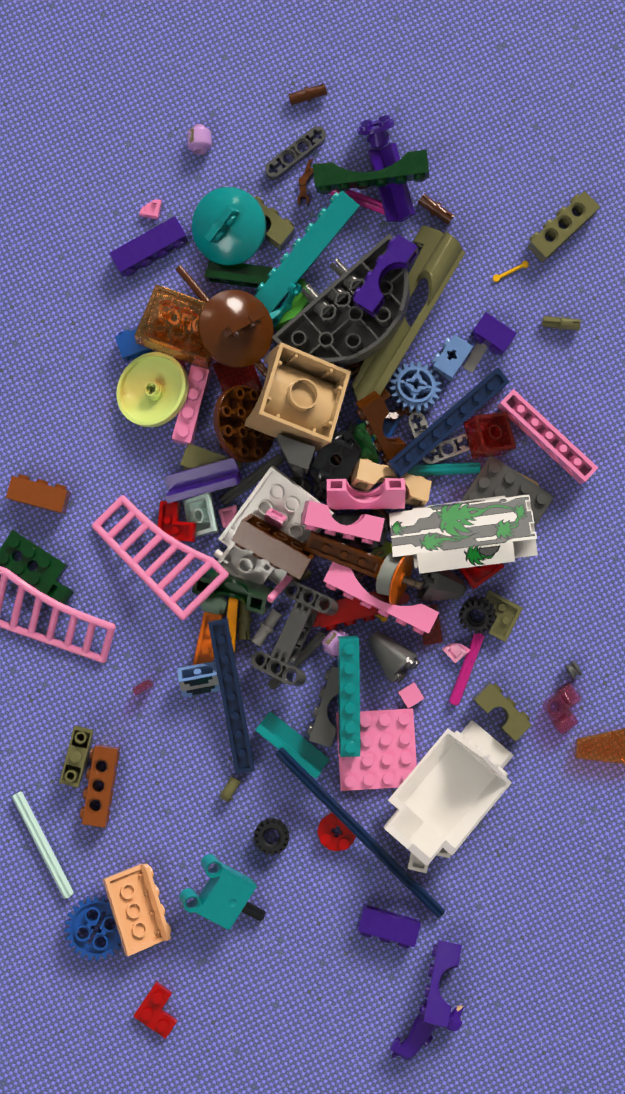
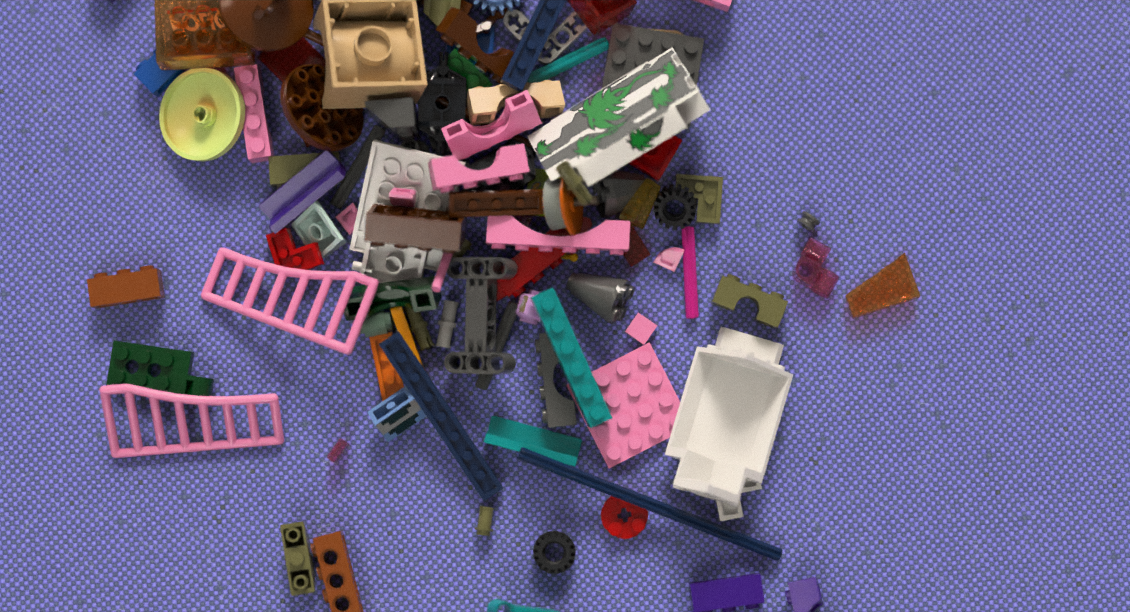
camera: 20 degrees left, 0 degrees up
(410, 565) = (573, 182): none -> olive axle
(452, 602) = (641, 204): none -> clear yellow slope

